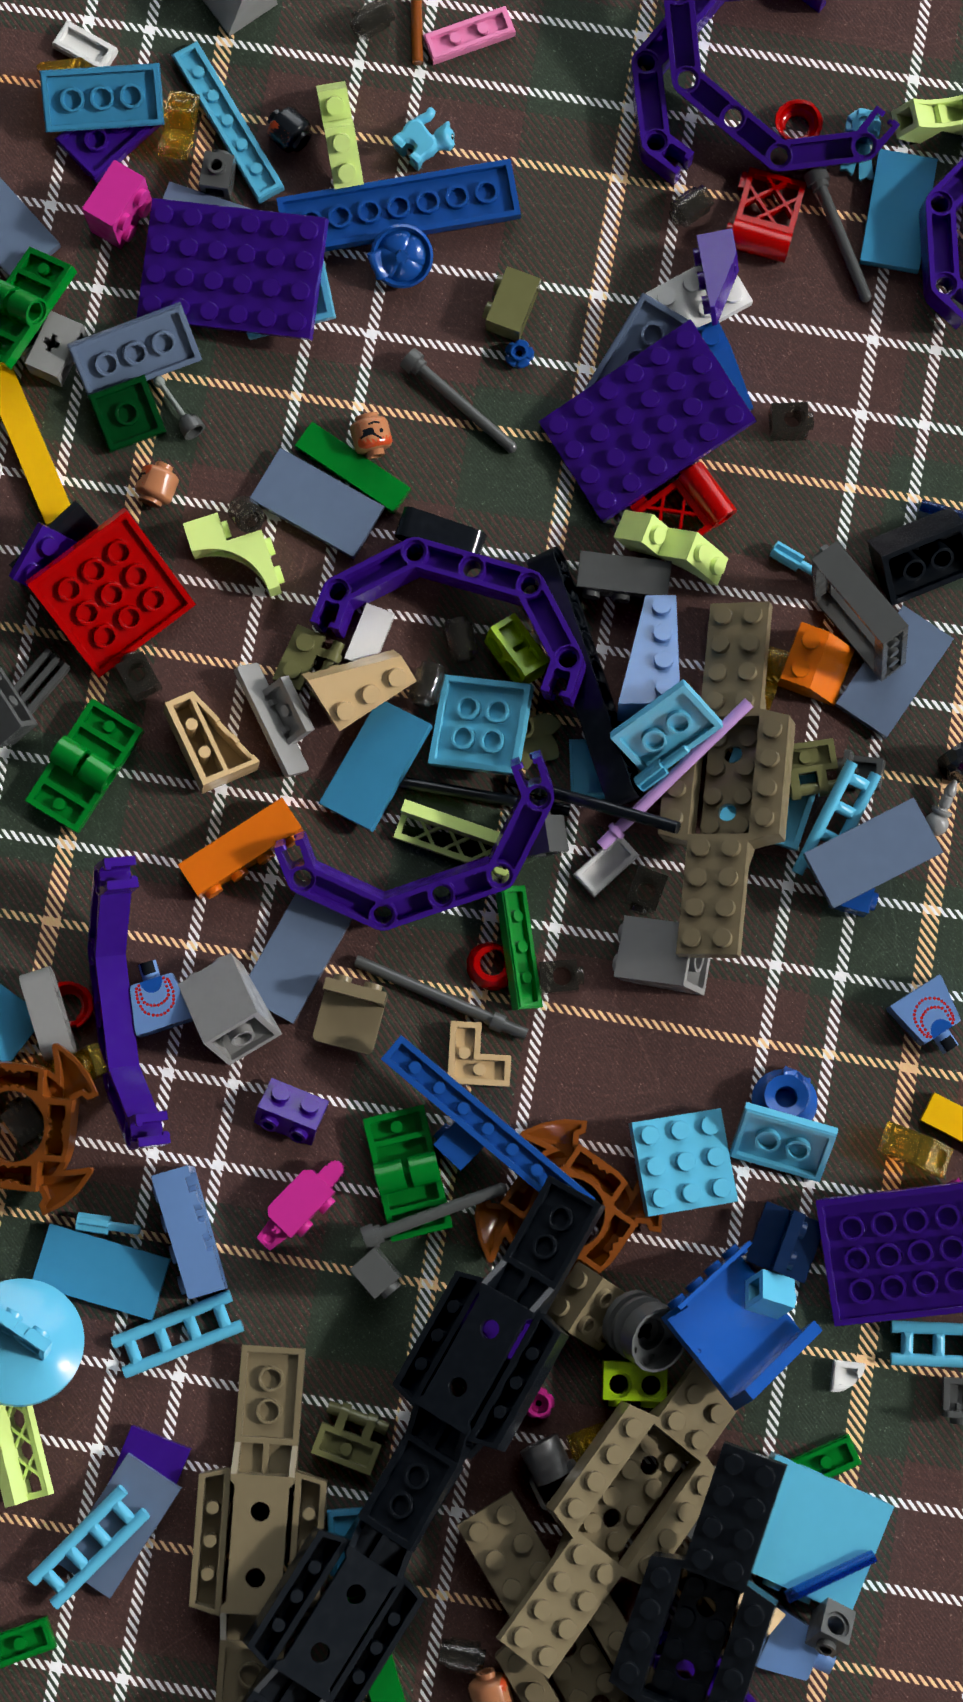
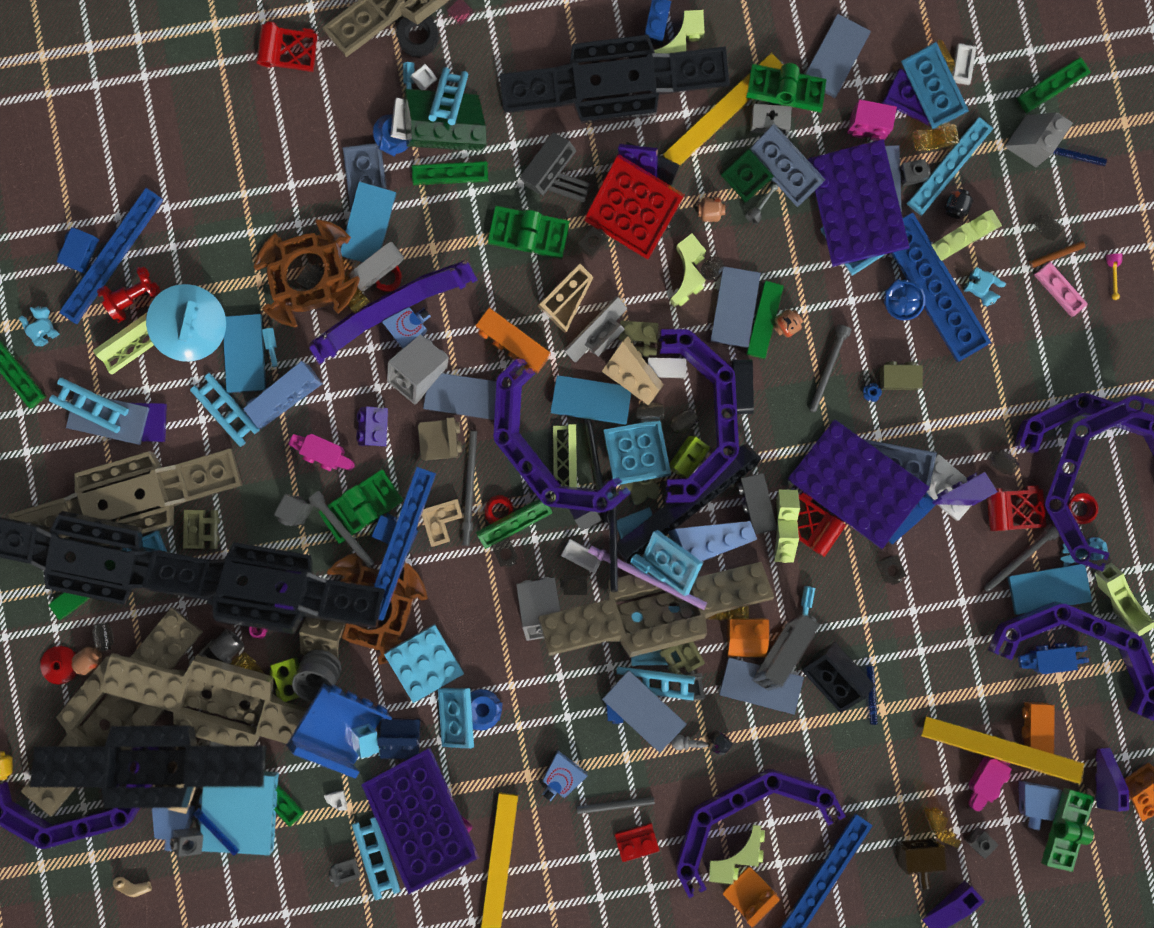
camera: 70 degrees right, 5 degrees up
(915, 1149) = (480, 796): clear yellow slope -> none

